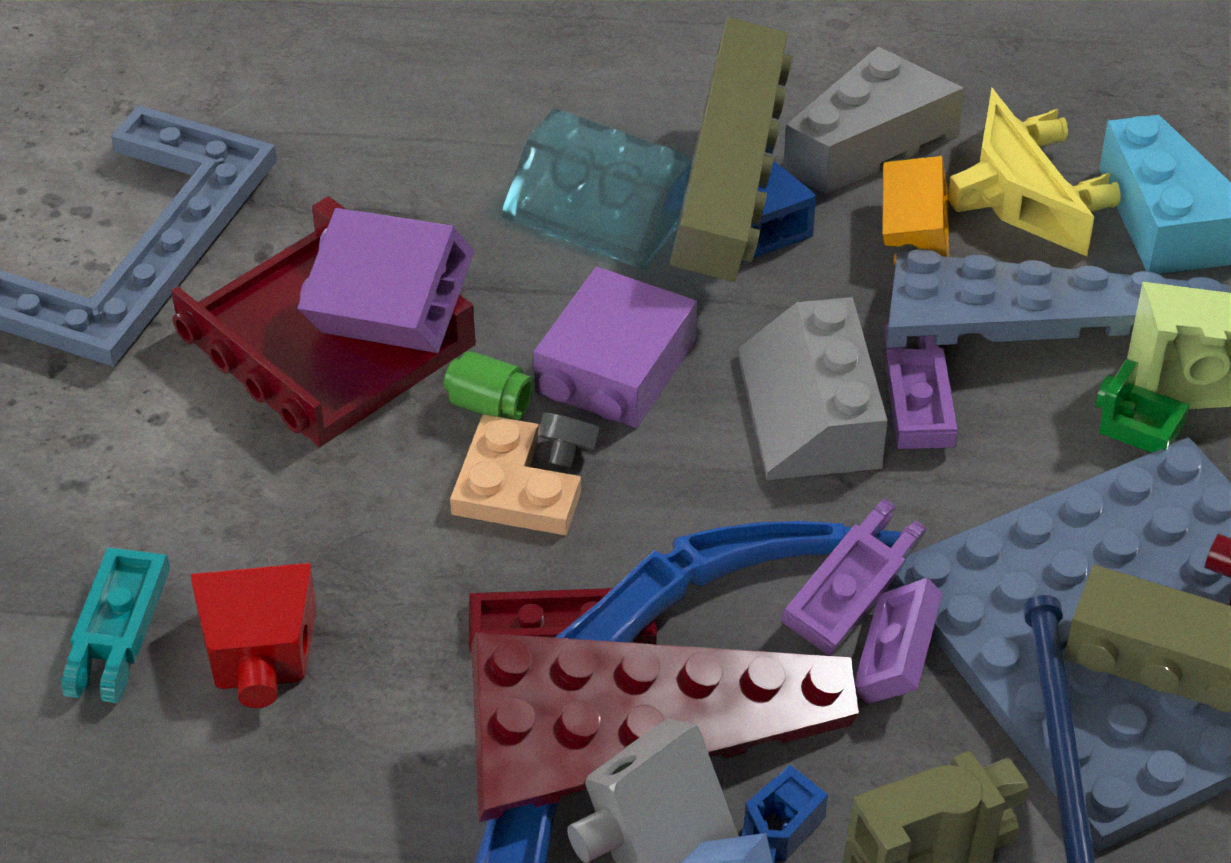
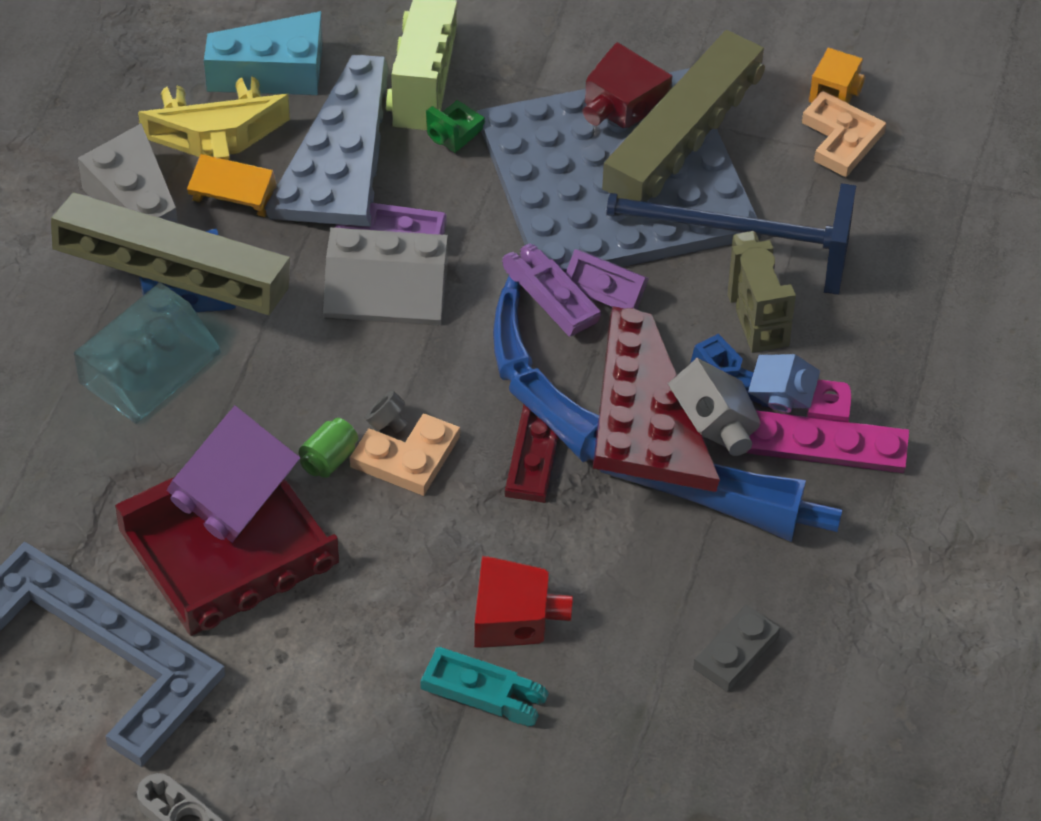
camera: 80 degrees left, 5 degrees up
(615, 347) = (311, 371): medium lavender brick -> none

